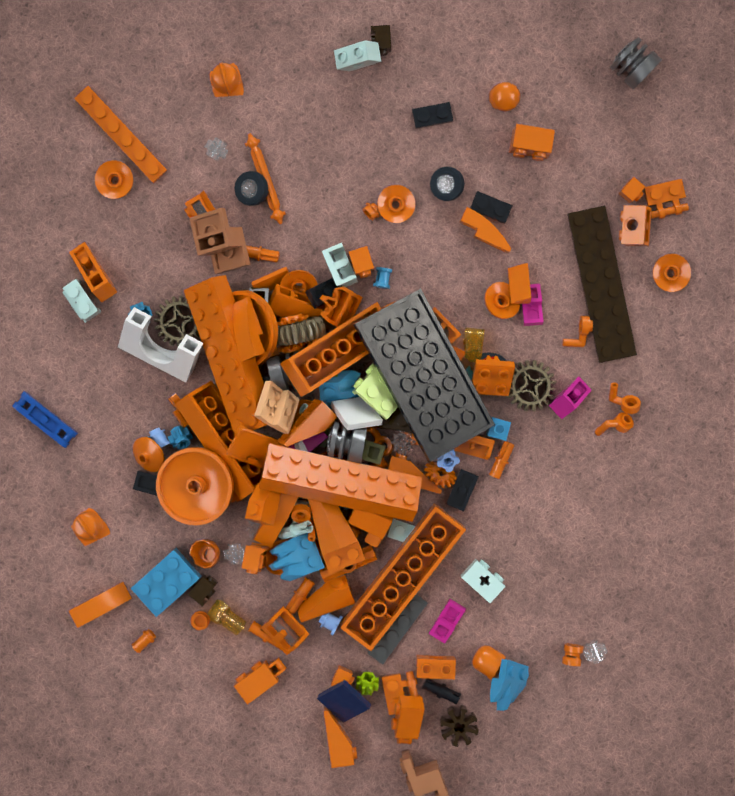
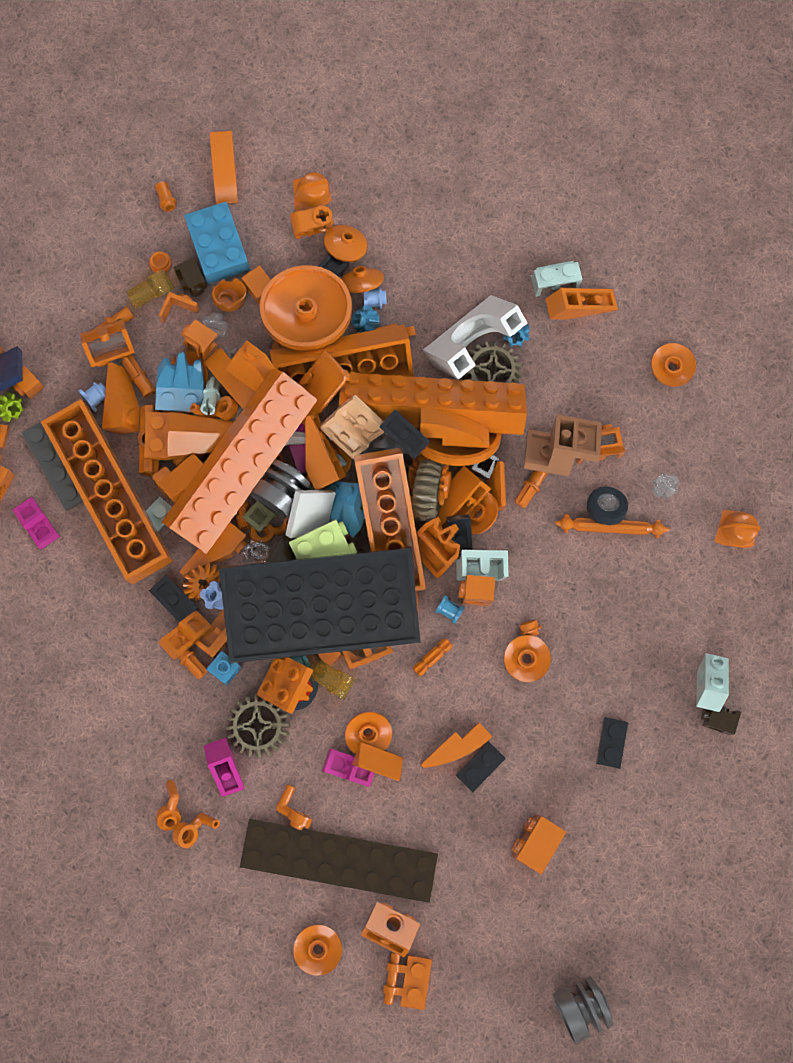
camera: 105 degrees right, 10 degrees down
(44, 419) = (444, 192): blue plate -> none
(118, 518) = (309, 222): none -> orange piece
(120, 134) = (719, 393): orange plate -> none
(128, 483) = (345, 243): none -> orange dish
(186, 535) = (256, 282): none -> orange brick
(224, 588) = (180, 300): none -> orange bracket
(258, 680) = (67, 294): orange brick -> none
(269, 364) = (404, 434): none -> black plate
(424, 276) = (432, 657): none -> orange axle
(447, 183) = (527, 726): black wheel -> none
(485, 469) = (185, 635): none -> orange slope
(486, 590) = (49, 580): light aqua brick -> none
(504, 96) = (602, 836): orange hair -> none
(632, 190) = (433, 943): orange plate -> none

